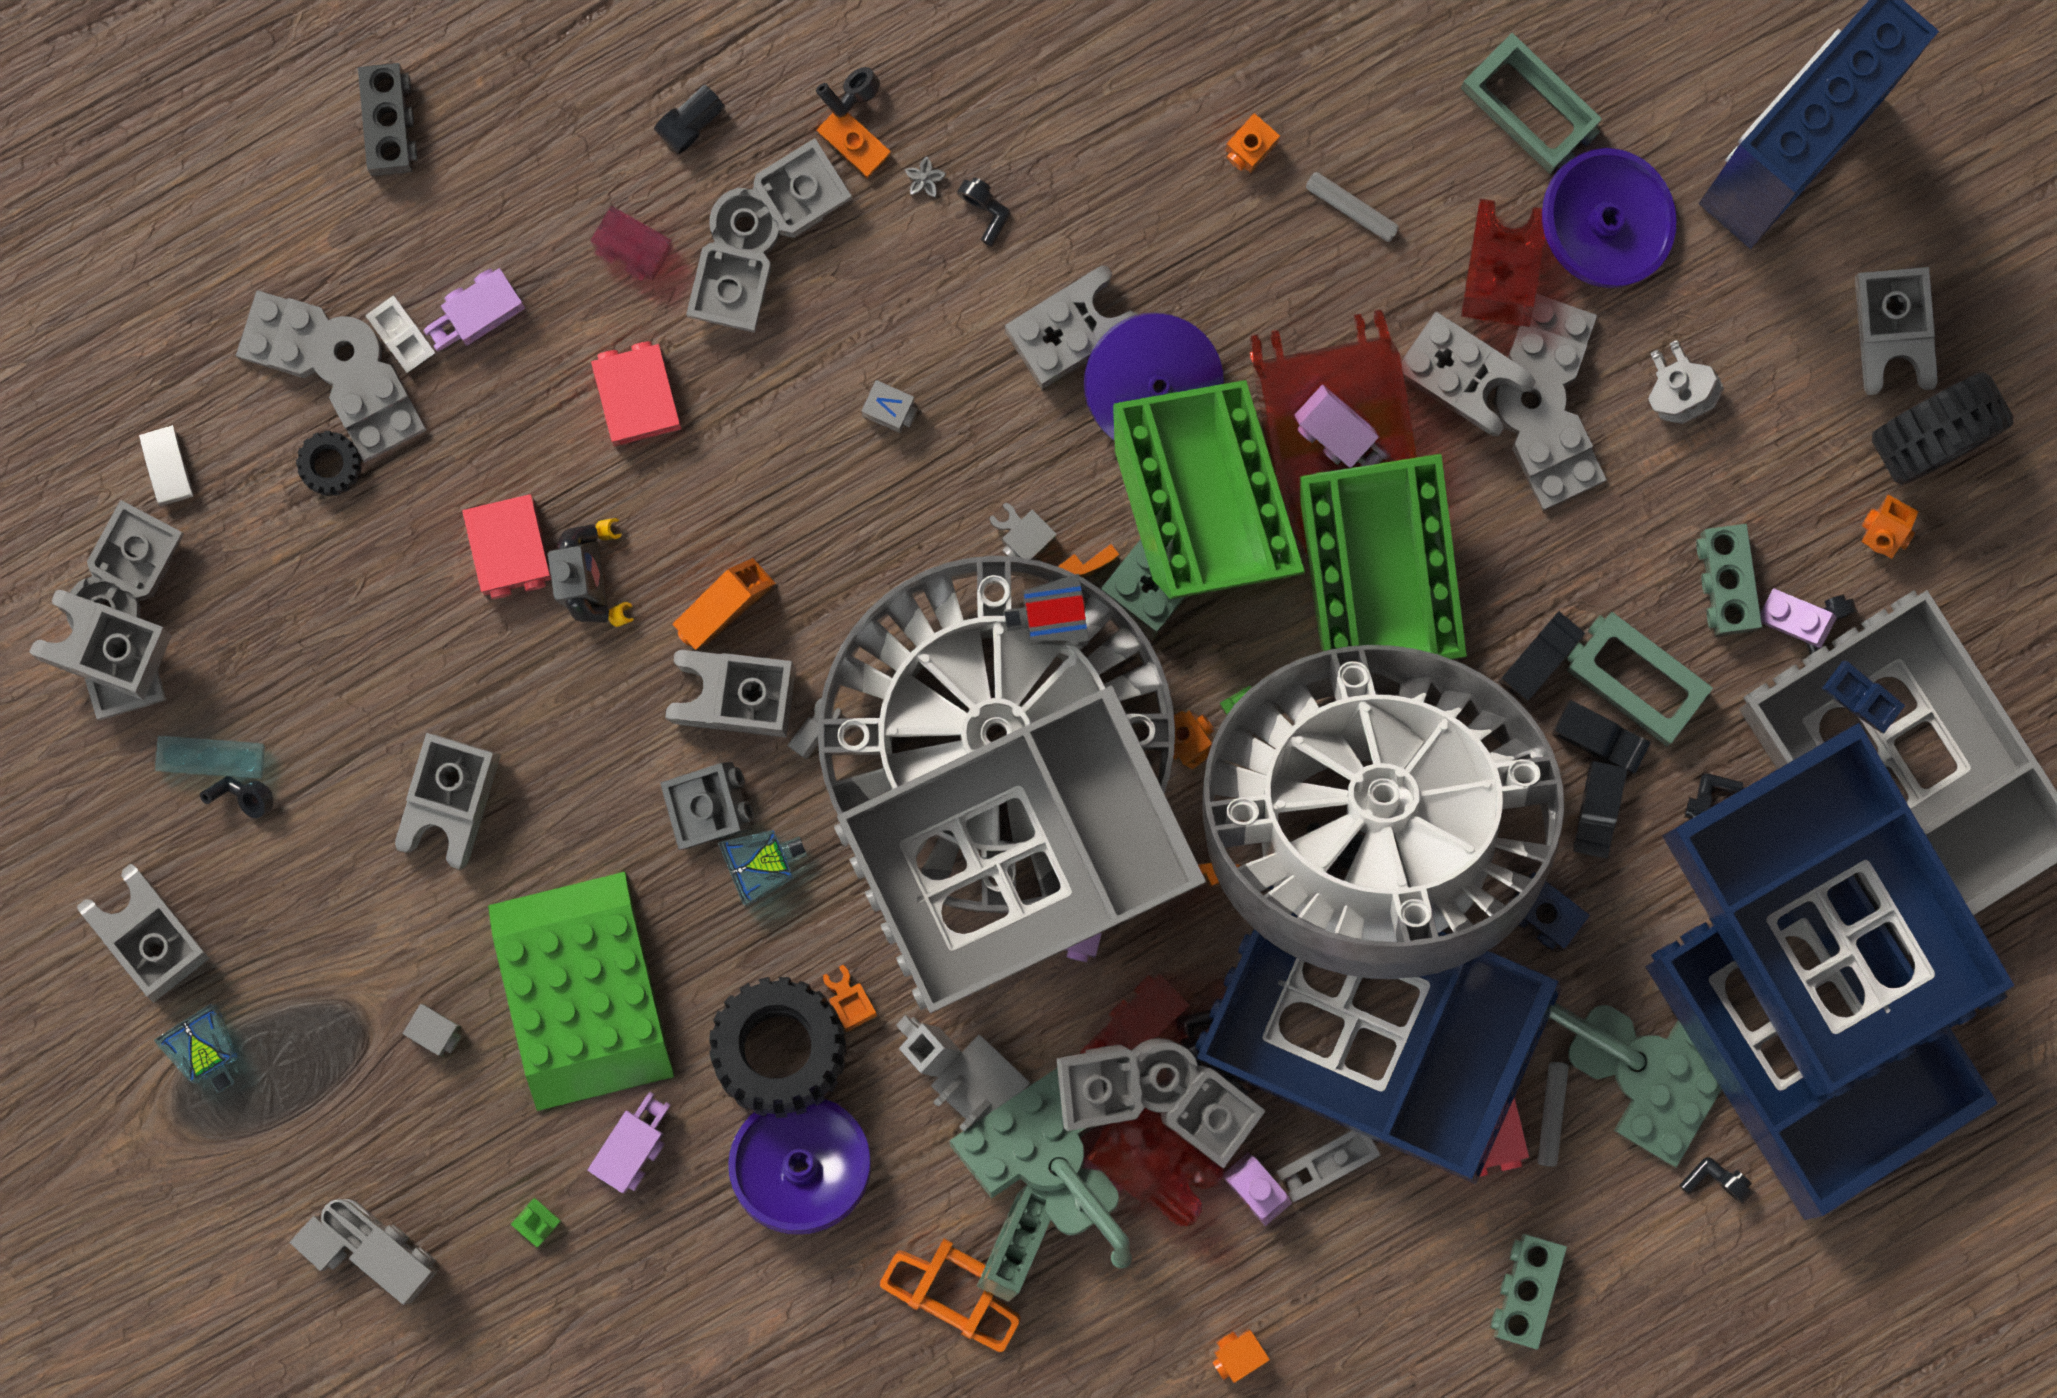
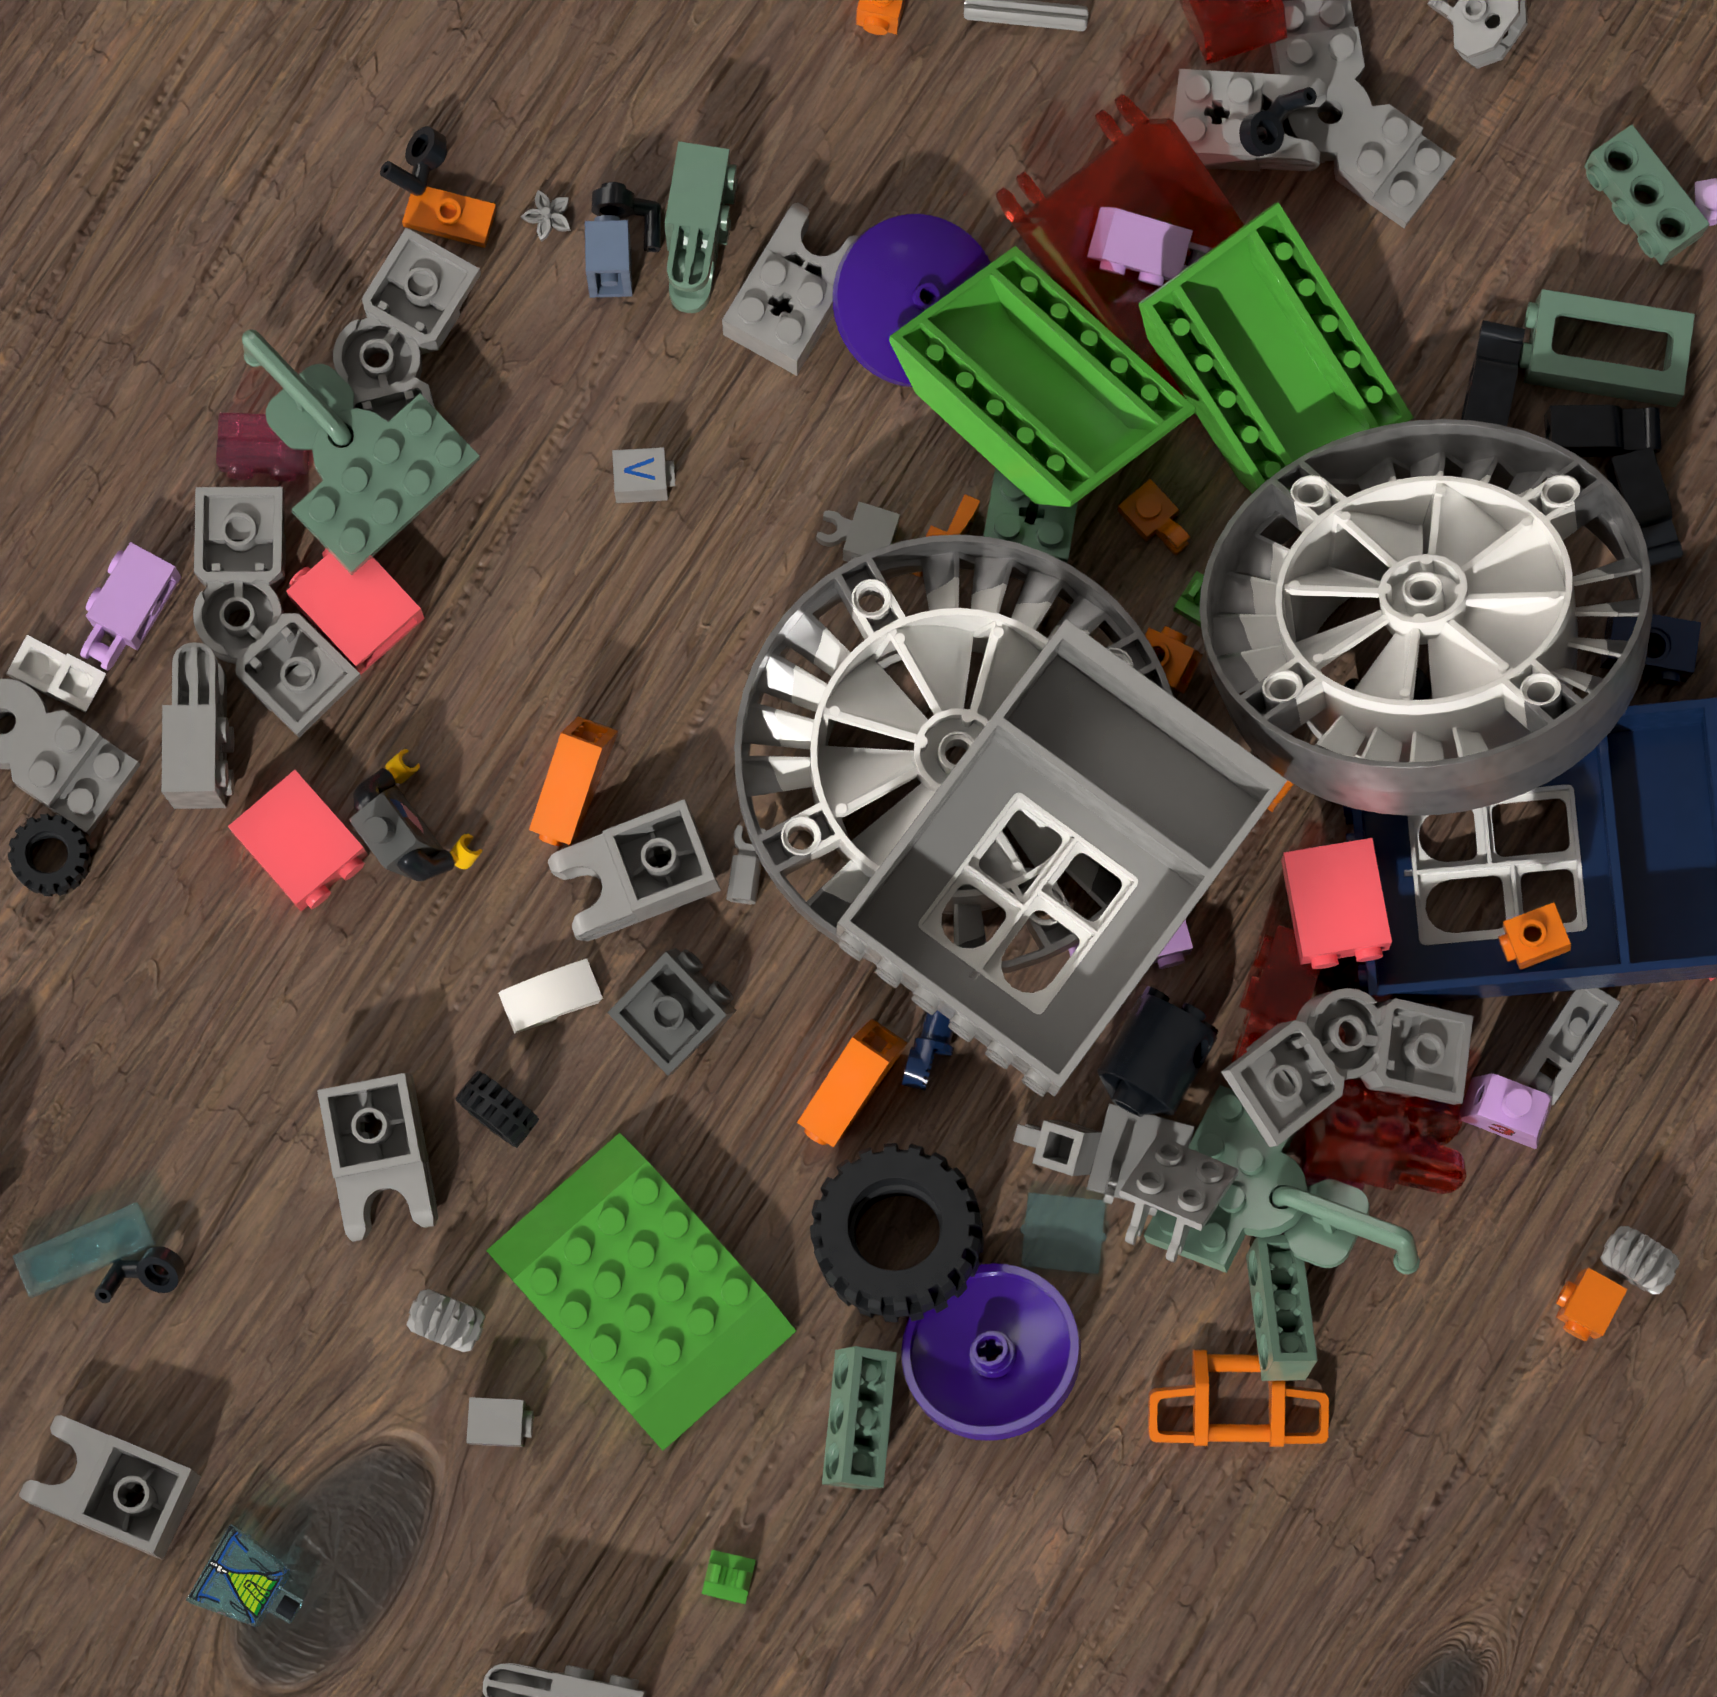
camera: 30 degrees left, 5 degrees down
(432, 940) = (445, 1320): none -> light grey gear
(475, 431) = (197, 732): none -> light grey brick
(545, 811) = (497, 1109): none -> black tyre
(570, 323) = (241, 564): none -> light grey plate
(627, 749) = (550, 995): none -> white slope
(630, 1146) = (790, 1434): lavender brick -> none
(683, 125) = (253, 290): black piece -> none
(683, 1161) = (859, 1418): none -> sand green brick
(700, 312) = (368, 483): none -> sand green plate
(760, 863) = (765, 1042): torso -> none
(805, 923) = (851, 1083): none -> orange slope
(850, 1002) = (950, 1140): orange plate -> none
(863, 932) = (934, 1039): none -> dark blue connector
(897, 1108) = (1063, 1233): none -> clear light blue piece
(948, 235) = (608, 257): none -> sand blue brick
(989, 1119) = (1177, 1184): none -> light grey plate
(1025, 243) = (697, 221): none -> sand green brick
(1027, 1019) = (1156, 1055): none -> black cylinder
(1052, 614) = (951, 587): torso -> none
(1206, 981) = (1336, 903): none -> coral brick
(1240, 626) = (1152, 513): none -> orange plate
(1290, 1344) = (1640, 1260): none -> light grey gear
(1330, 1080) = (1534, 936): none -> orange brick
(1474, 390) = (1268, 123): none -> black plate

